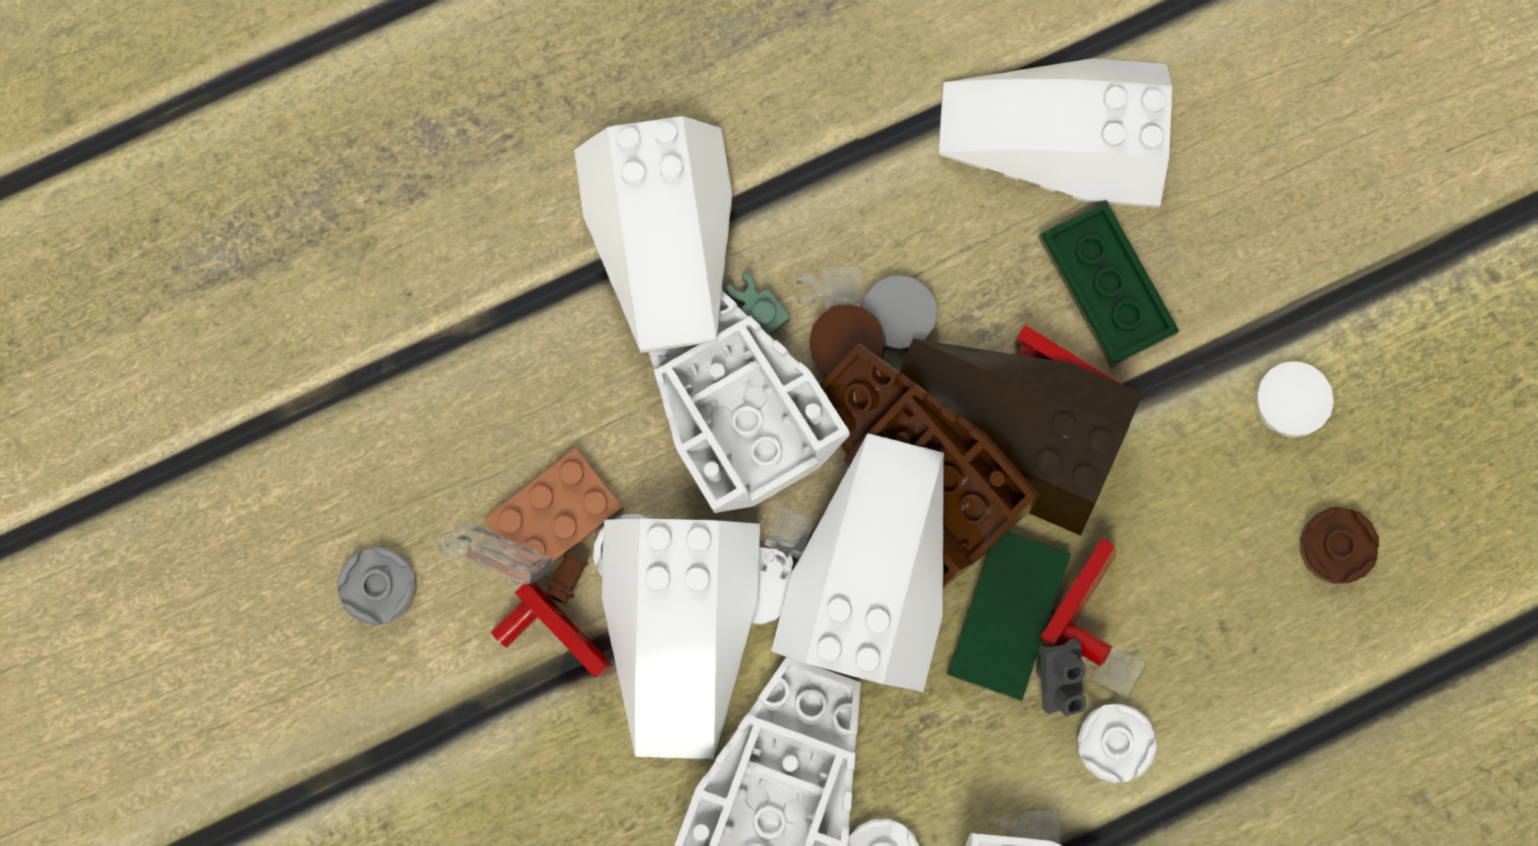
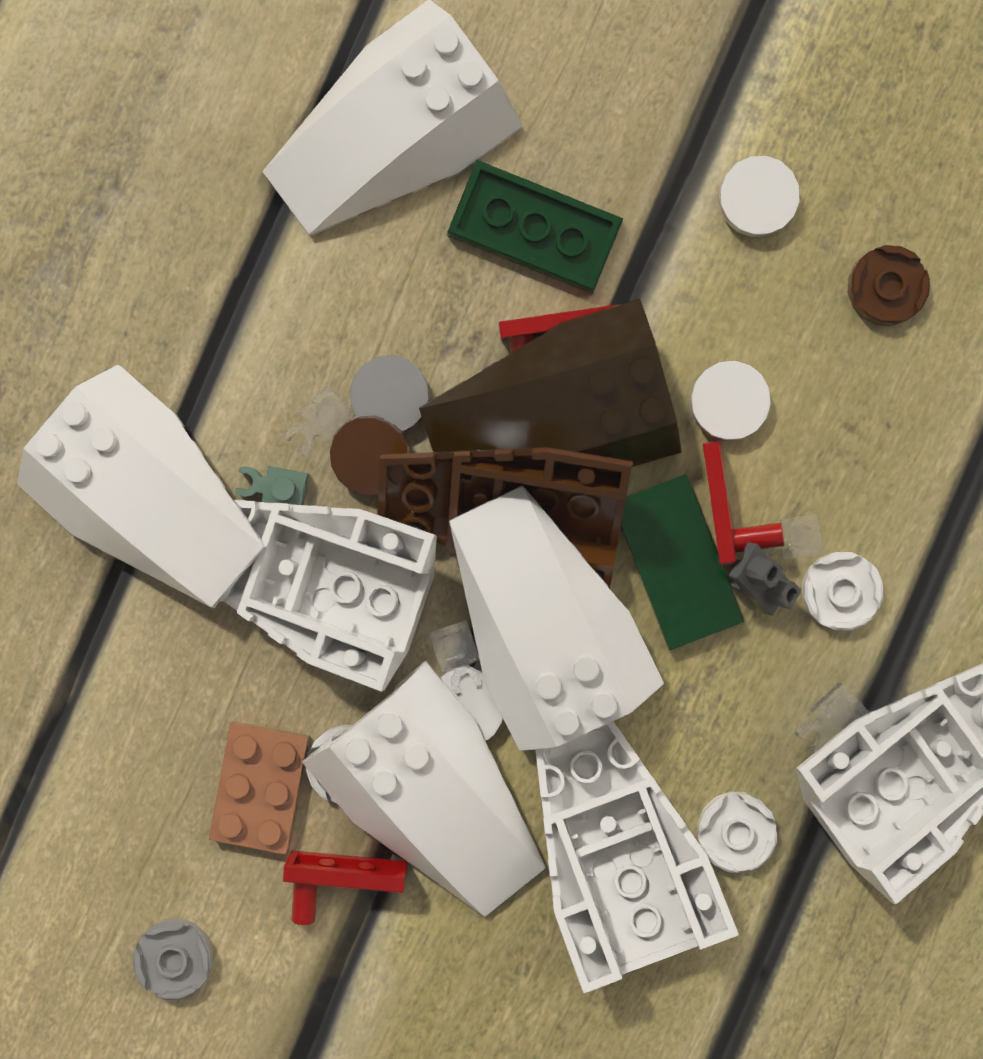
camera: 40 degrees left, 10 degrees up
(495, 553) = (241, 863): clear plate -> none
(566, 578) = (313, 829): reddish brown pin -> none
(1148, 528) = (730, 400): none -> white tile

